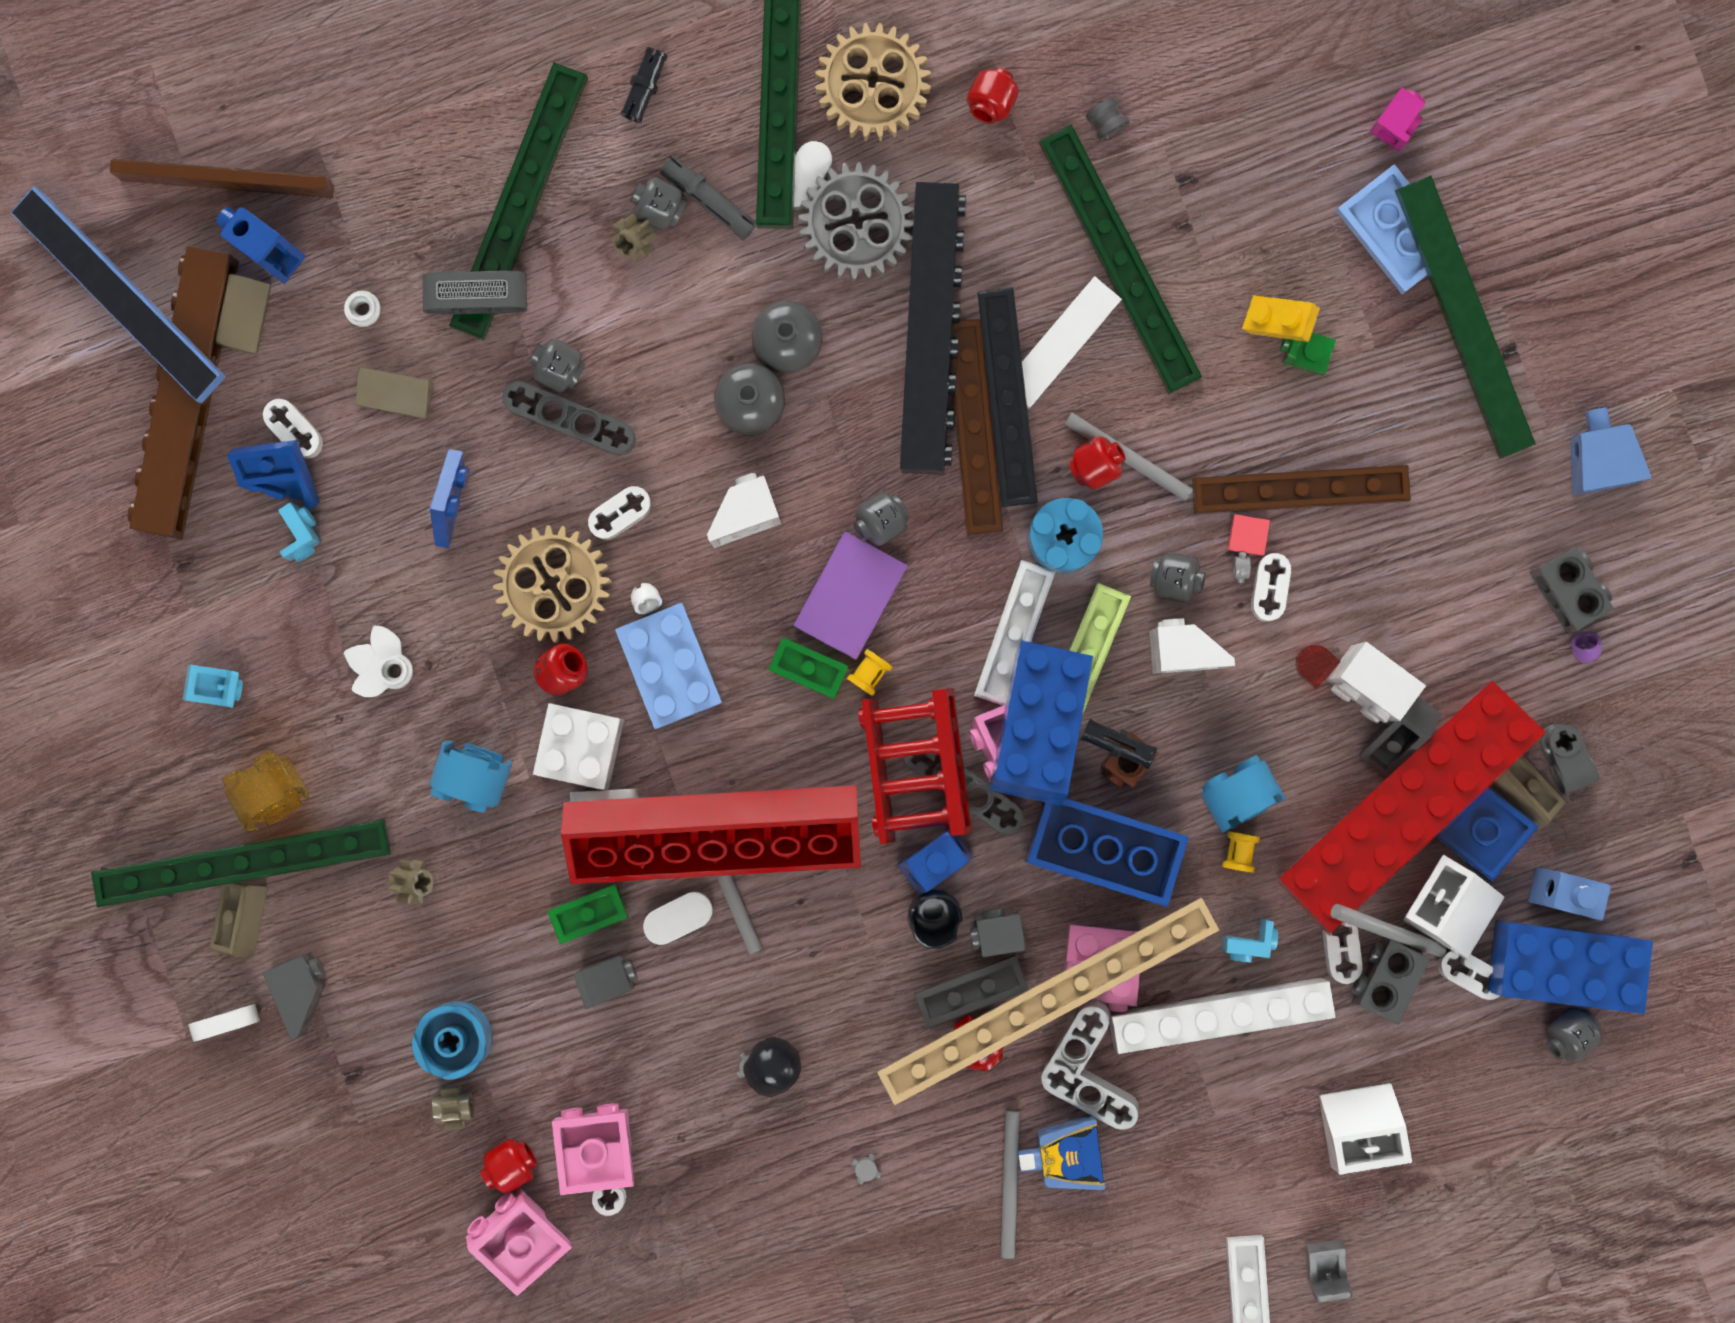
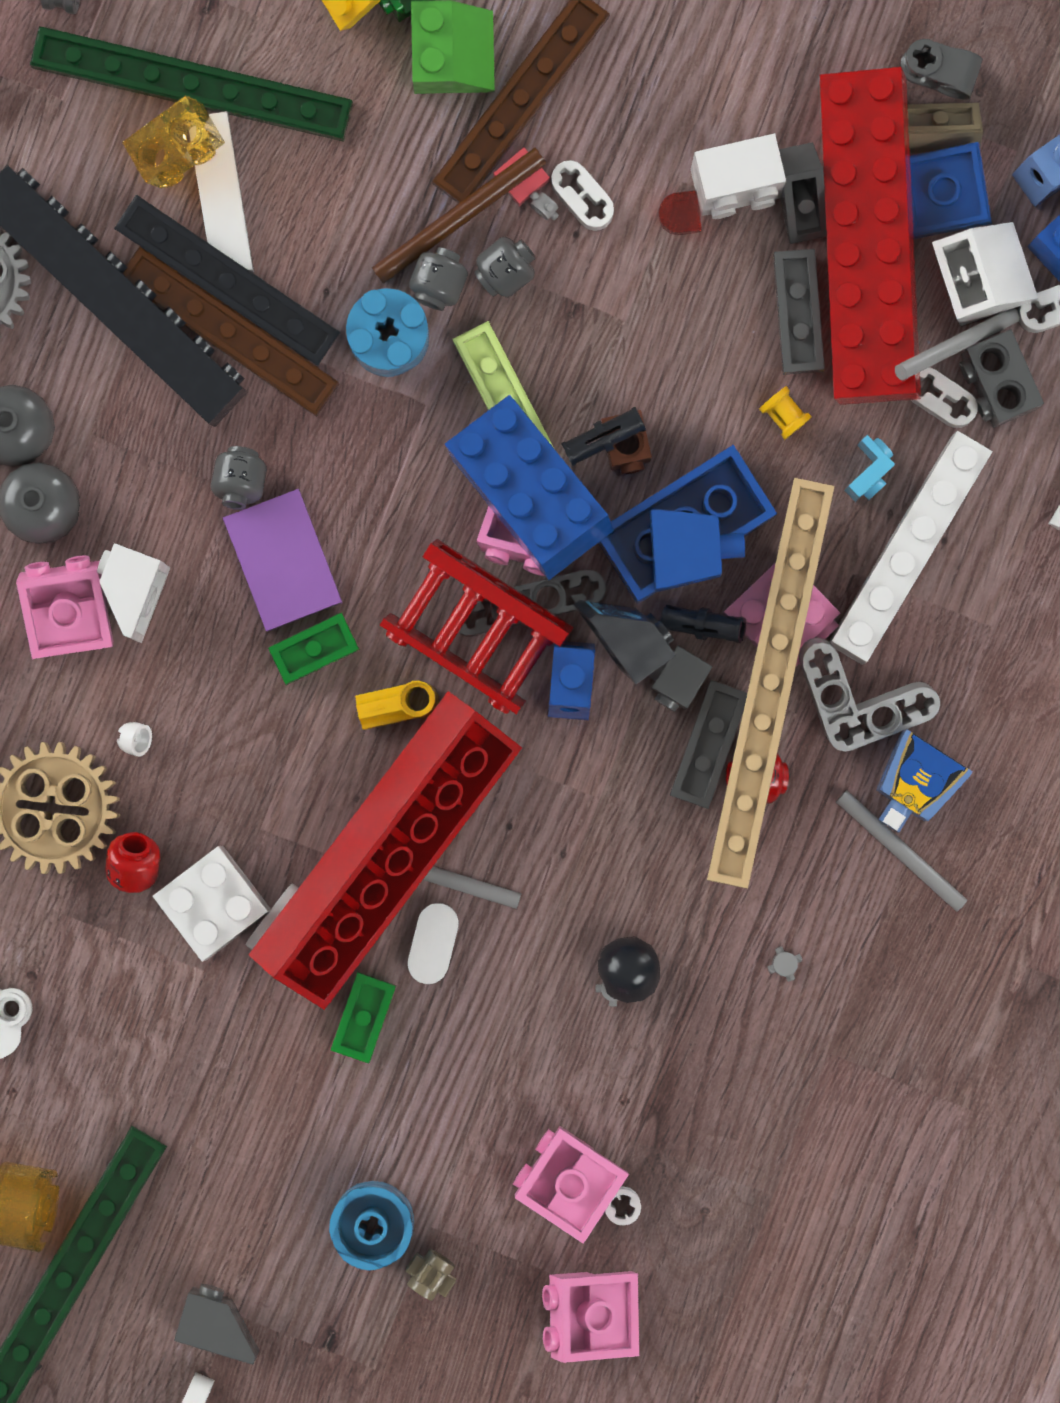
camera: 50 degrees left, 0 degrees up
(238, 919) = (110, 1325): dark tan slope -> none
(411, 881) = (205, 1146): dark tan gear -> none
(470, 776) = (156, 1017): dark azure brick -> none
(508, 1166) = (521, 1268): red head -> none
(605, 980) = (432, 1048): dark grey slope -> none
(615, 506) = (51, 699): white beam -> none
(668, 666) = (209, 768): light blue plate -> none
(693, 476) = (64, 608): none -> bright pink plate
(815, 754) = (393, 705): none -> yellow piece
(869, 672) = (362, 599): yellow bush -> none
(934, 918) = (620, 722): black hair -> none
(997, 878) = (632, 640): none -> black slope
(1016, 624) = (427, 437): white tile -> none
(1049, 918) = (704, 623): none -> black pin
(1073, 274) = (170, 133): none -> clear yellow brick
(1092, 868) = (689, 548): none -> blue torso
(1097, 462) = (349, 251): red head -> none
(1130, 539) = (438, 279): none -> dark grey head
(1132, 459) = (367, 221): light grey bar -> none
(1185, 648) = (572, 311): white slope -> none
(1186, 516) = (459, 215): none -> reddish brown piece
(1242, 794) = (736, 370): dark azure brick -> none
(1295, 414) = (452, 48): none -> bright green slope
(1317, 801) = (798, 311): none -> dark grey plate

